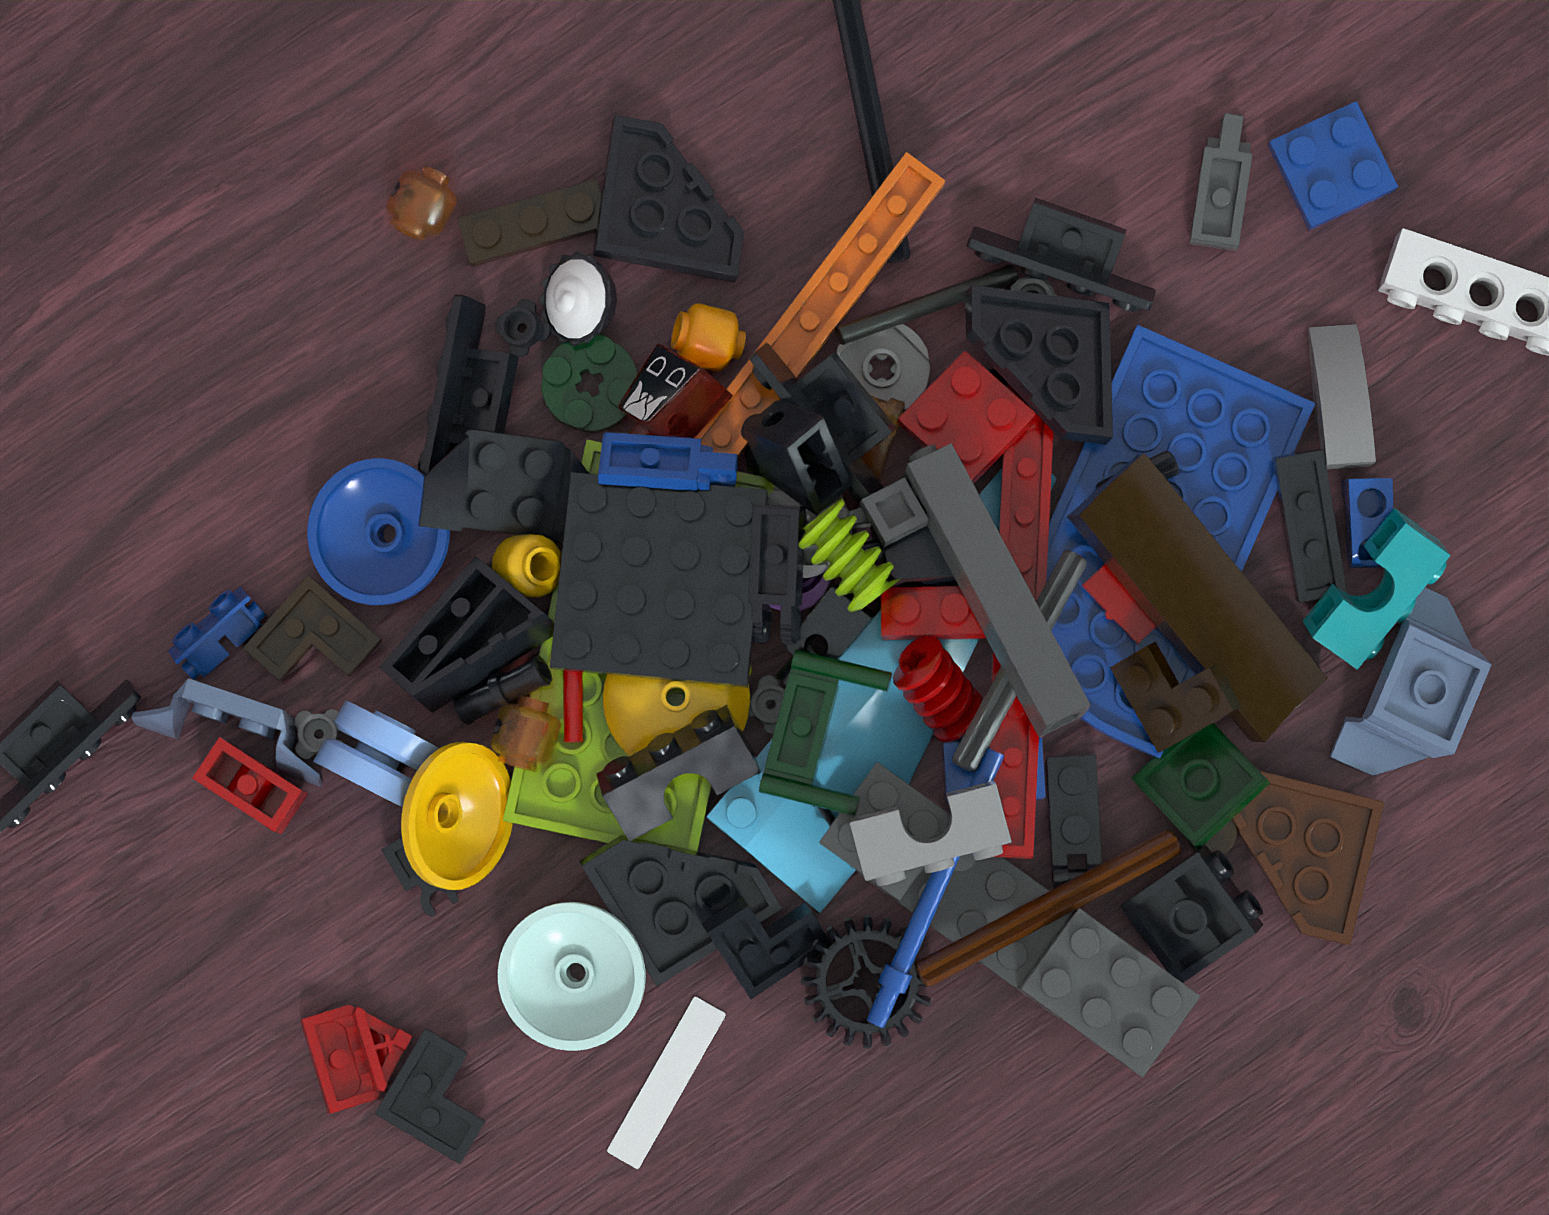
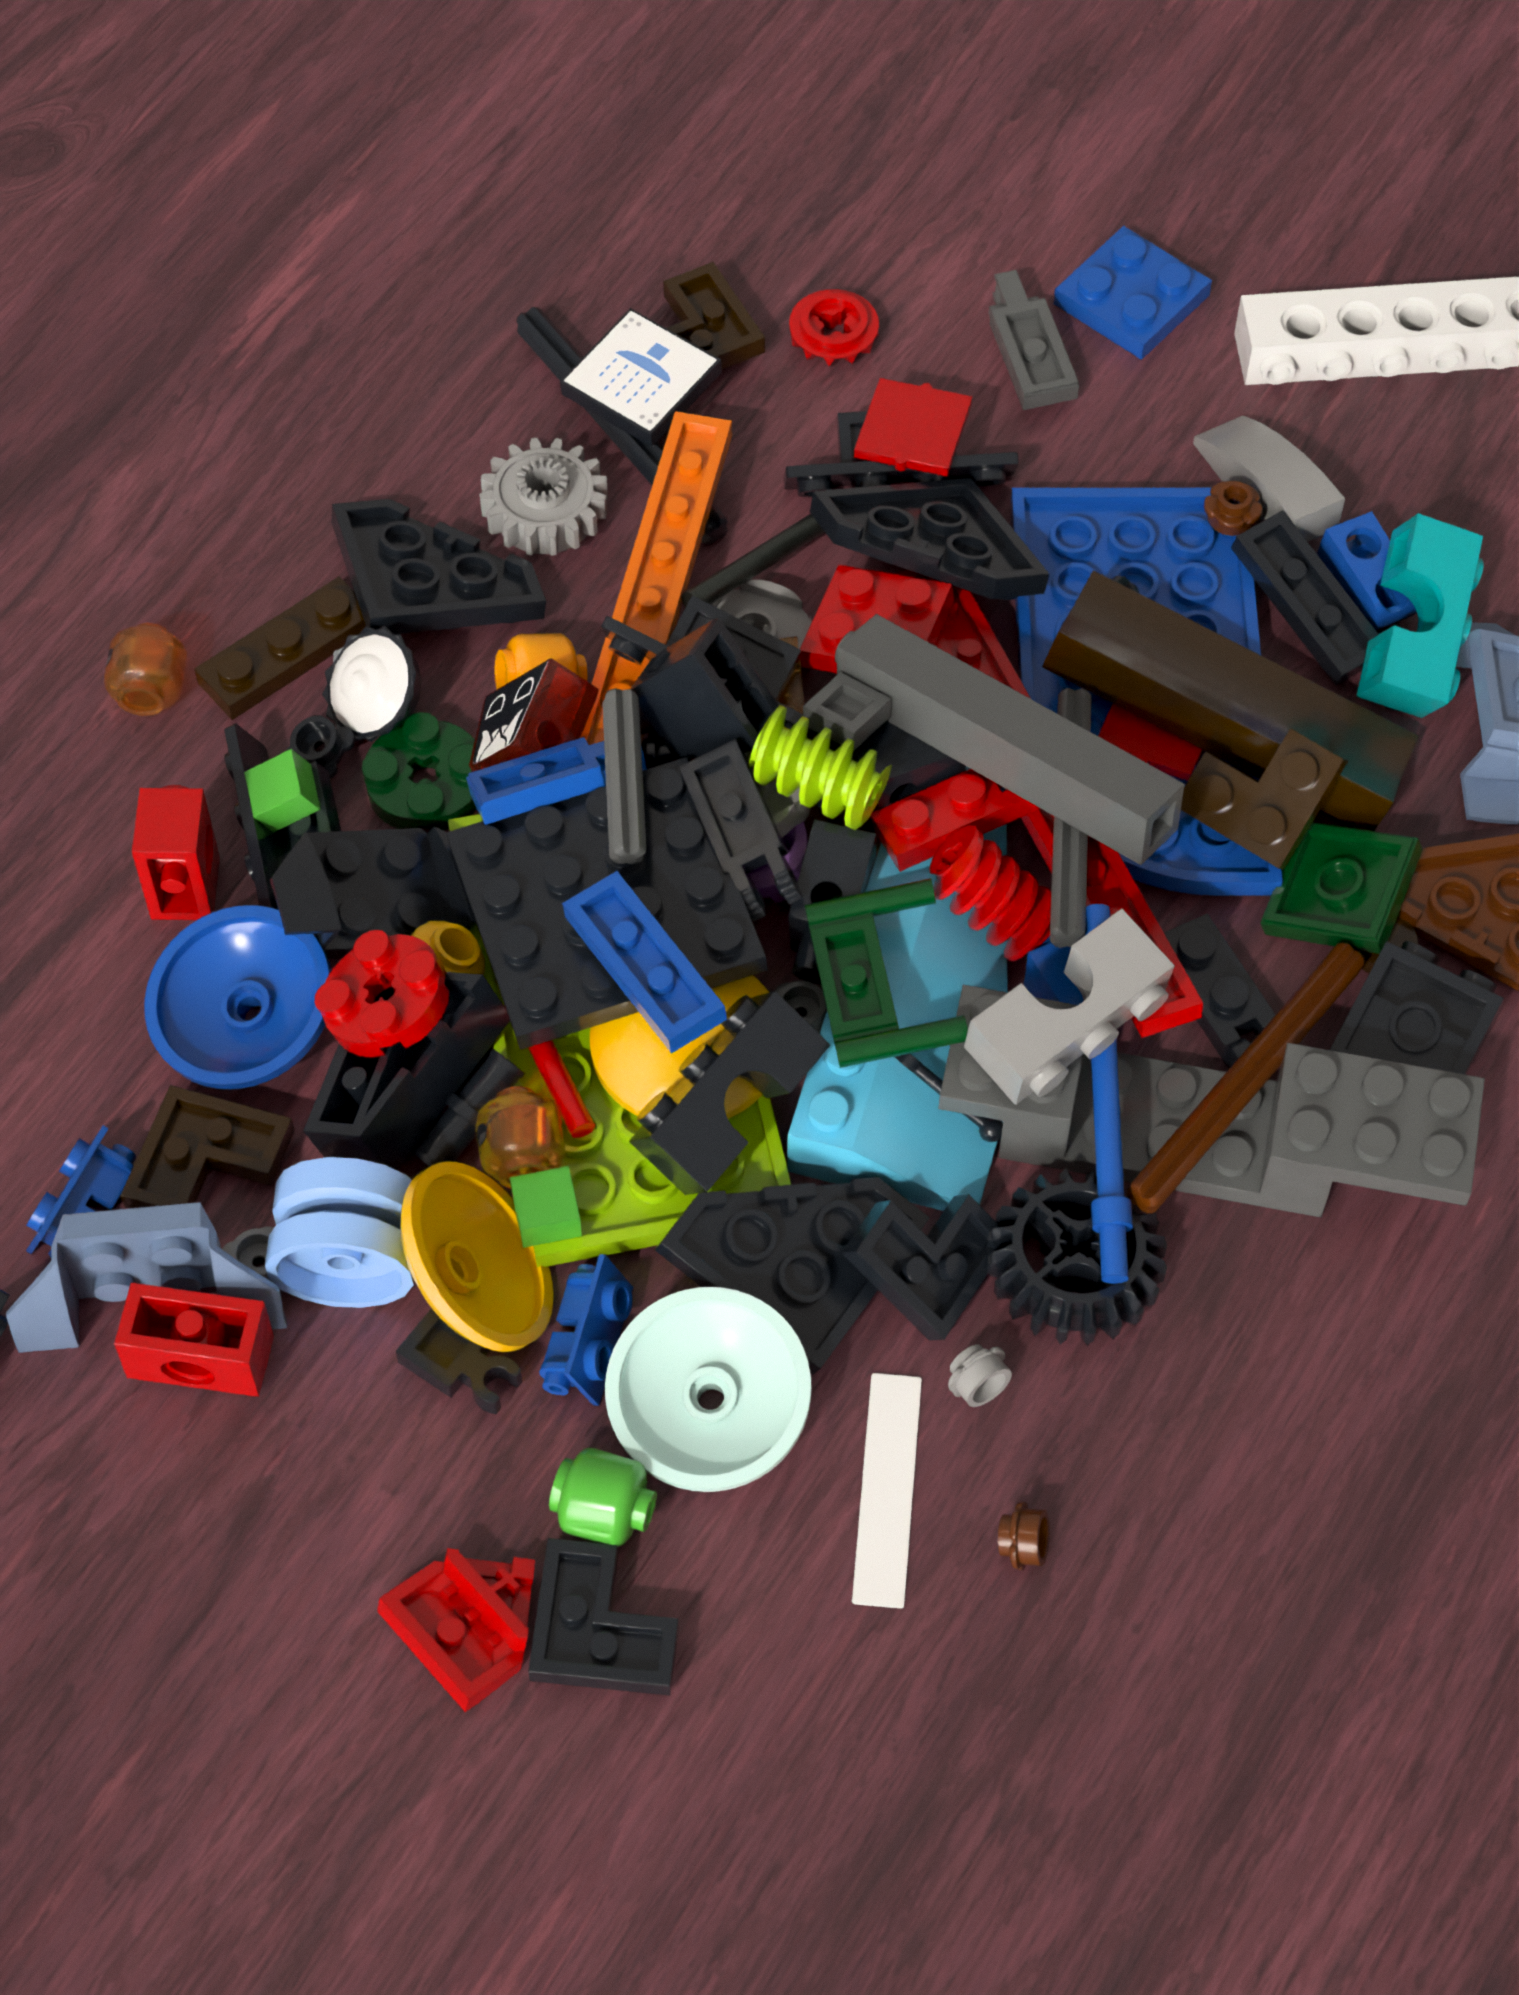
camera: 25 degrees left, 25 degrees down
(379, 391) = (175, 852): none -> red brick
(447, 582) = (366, 971): none -> red plate
(472, 1016) = (602, 1497): none -> bright green head
(475, 369) = (282, 790): none -> bright green piece
(521, 792) = (545, 1206): none -> bright green piece
(532, 871) = (596, 1304): none -> blue hinge
(654, 662) = (644, 962): none -> blue plate
(707, 500) = (624, 776): none -> dark grey axle
(735, 1162) = (1024, 1536): none -> reddish brown plate
(761, 1035) = (979, 1375): none -> light grey plate
(784, 148) = (544, 498): none -> light grey gear
(899, 98) = (640, 377): none -> white tile
(978, 72) = (713, 315): none -> dark brown plate
(1083, 244) = (913, 427): none -> red piece
(1084, 78) = (829, 309): none -> red gear
(1282, 432) = (1236, 517): none -> reddish brown plate

